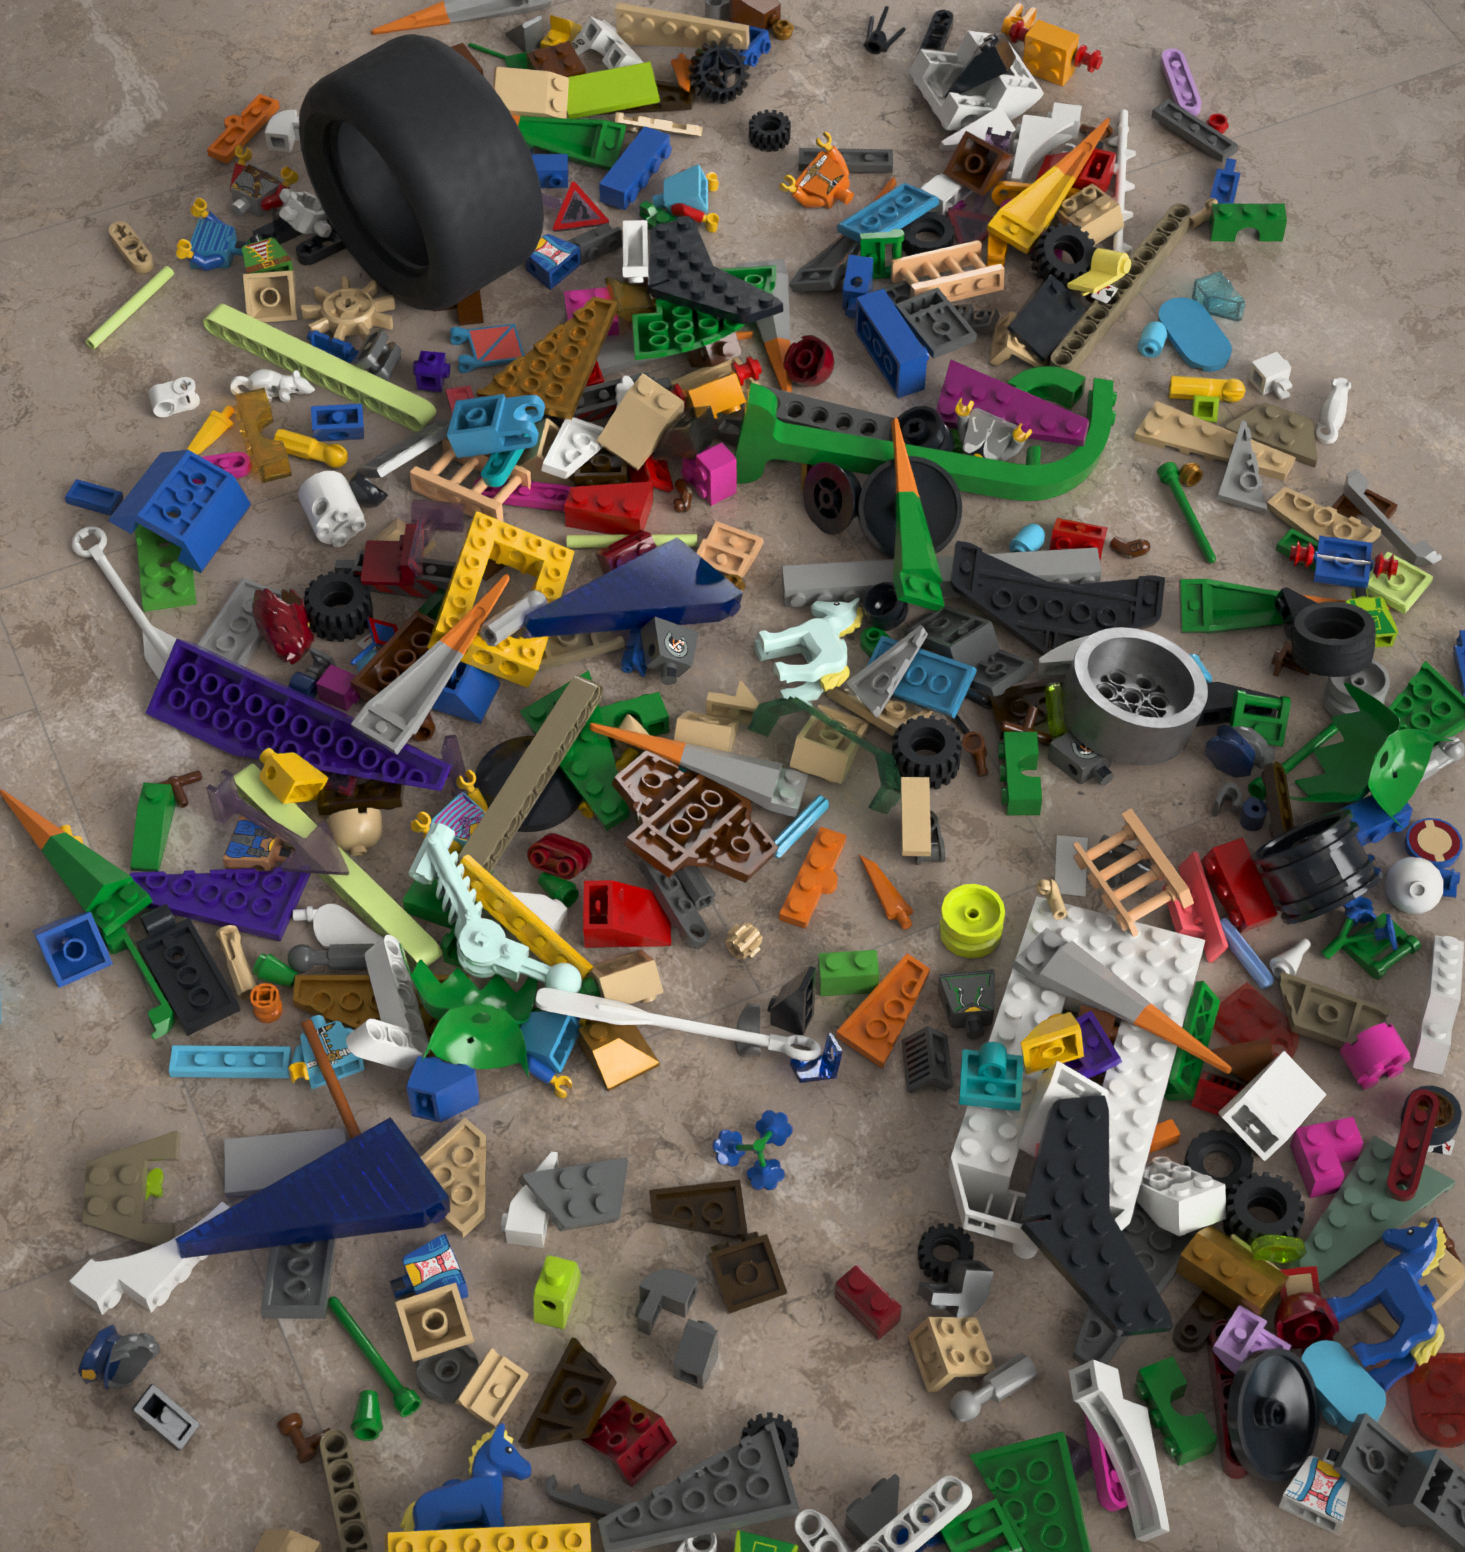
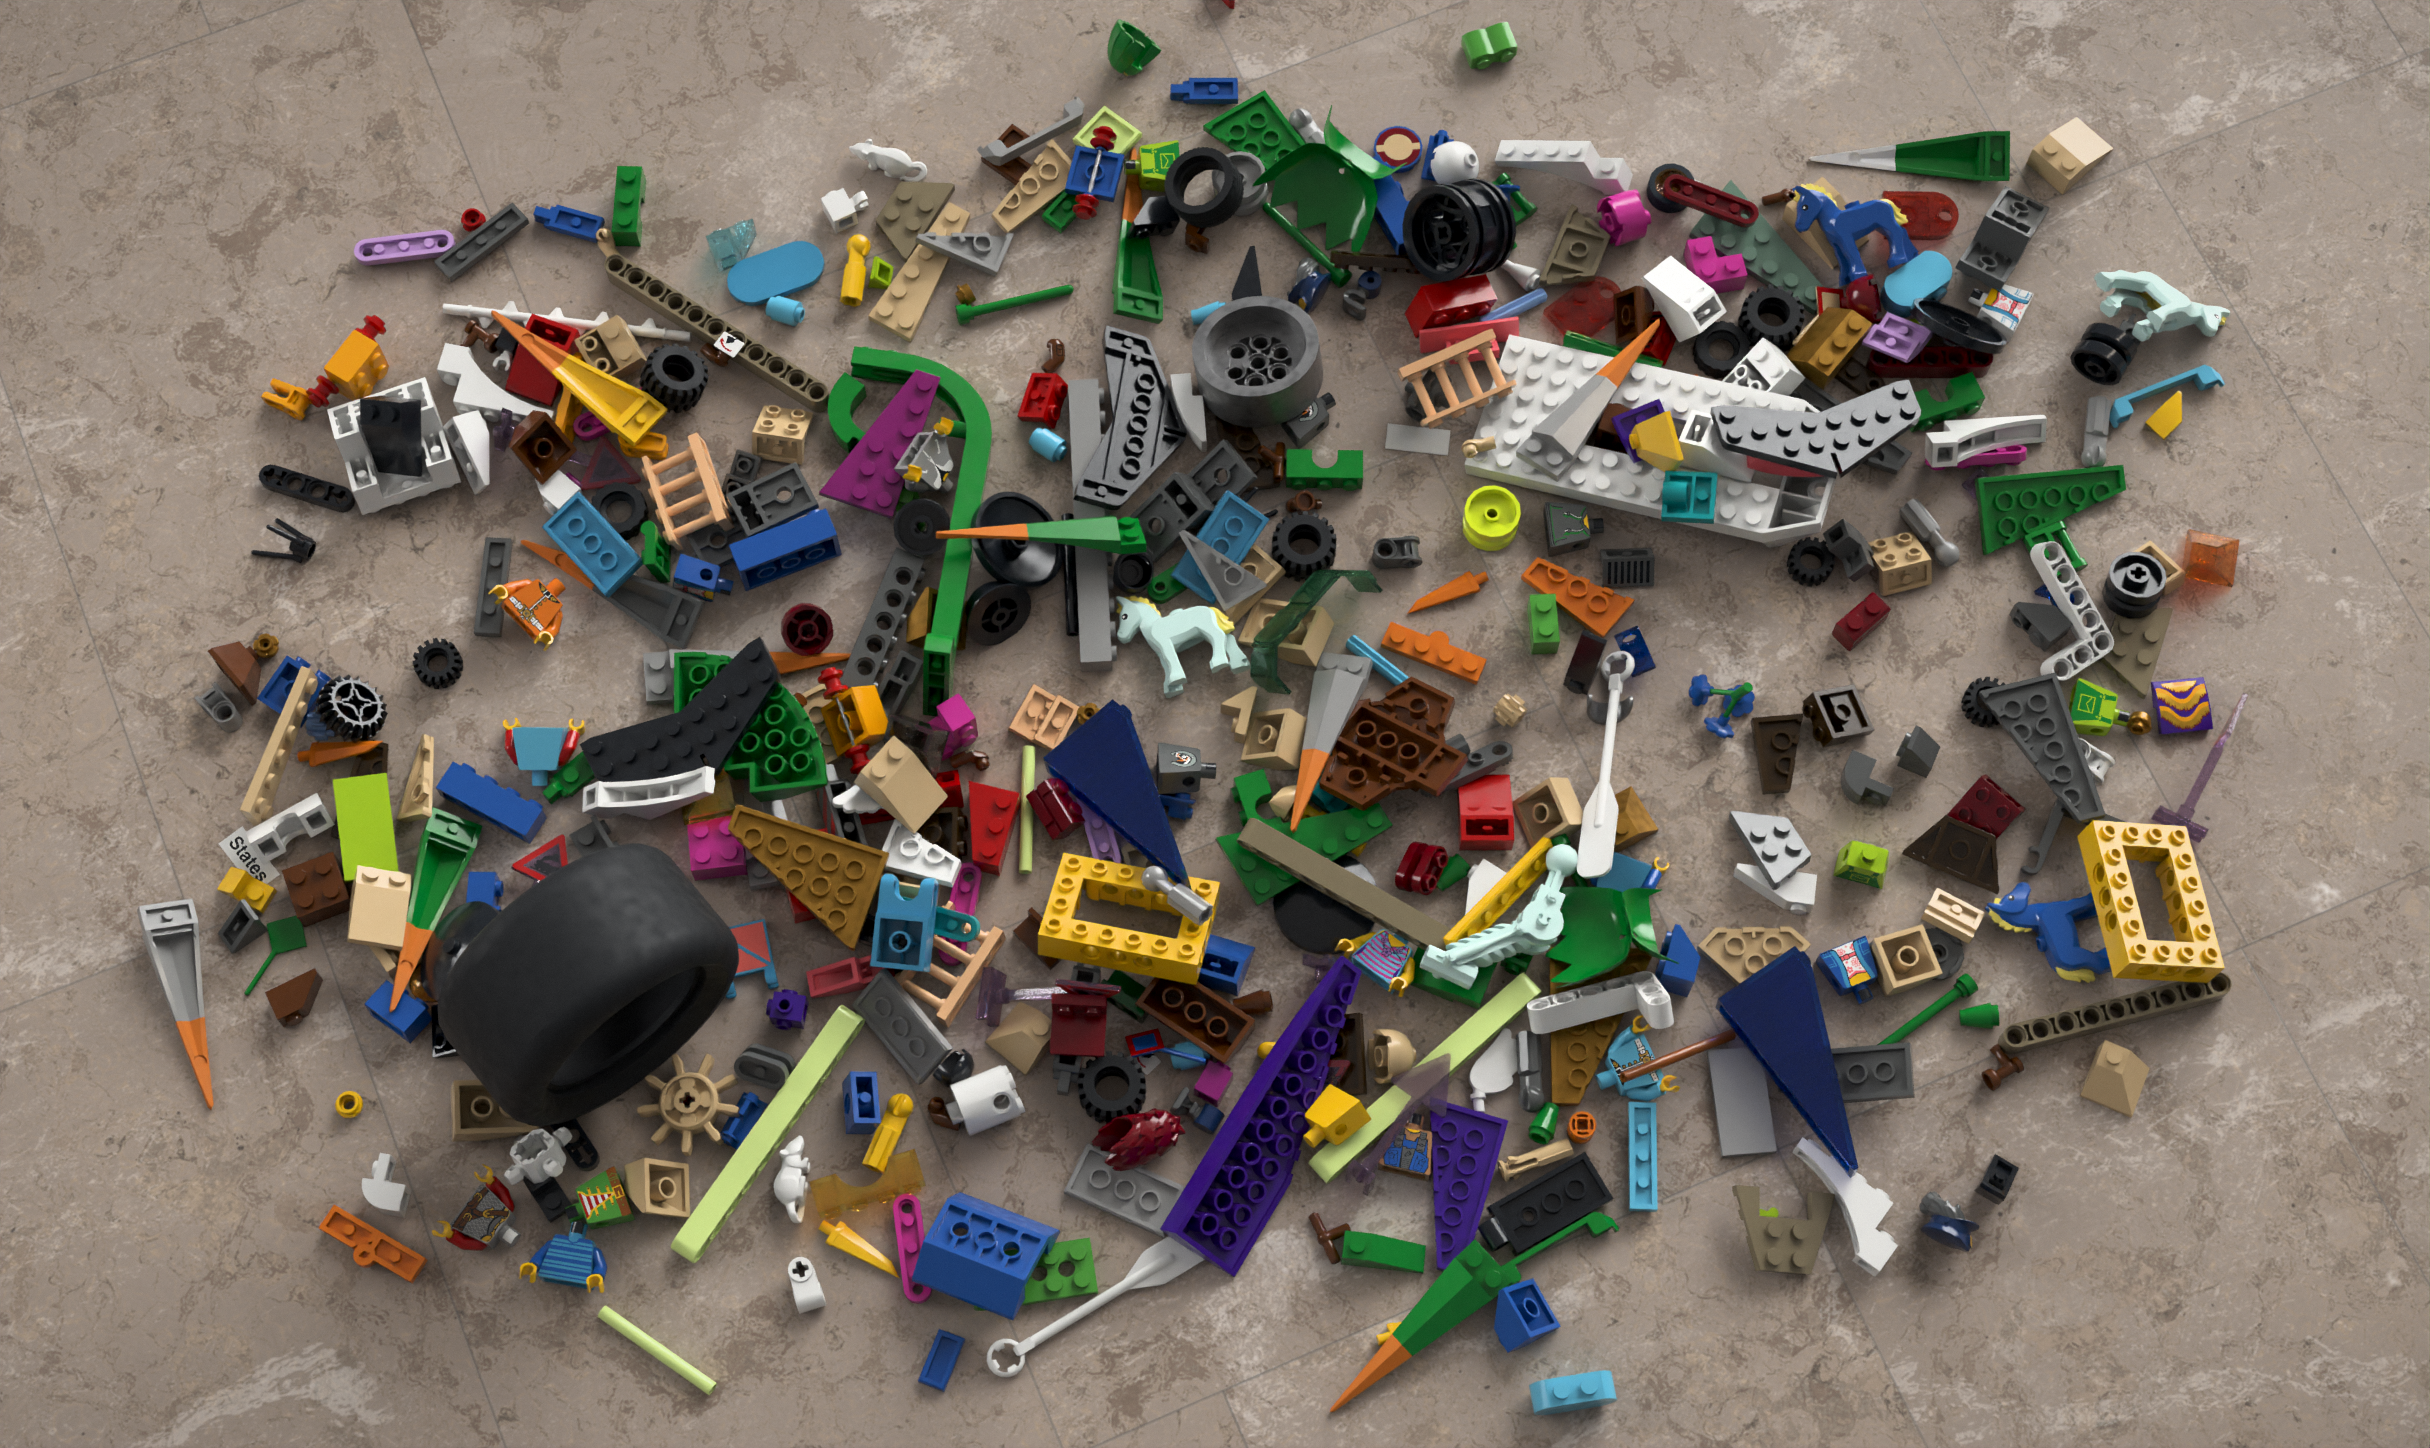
camera: 90 degrees left, 15 degrees up
(131, 255) = (544, 1375): tan beam -> none
(405, 703) = (1278, 996): light grey plate -> none
(915, 816) = (1386, 555): tan tile -> none
(1046, 317) = (762, 400): black slope -> none
(1055, 709) = (1263, 430): clear neon green tile -> none
(1105, 269) = (713, 343): light yellow door -> none
(1270, 728) = (1280, 264): green plate -> none
(1278, 1248) = (1811, 309): clear neon green tile -> none

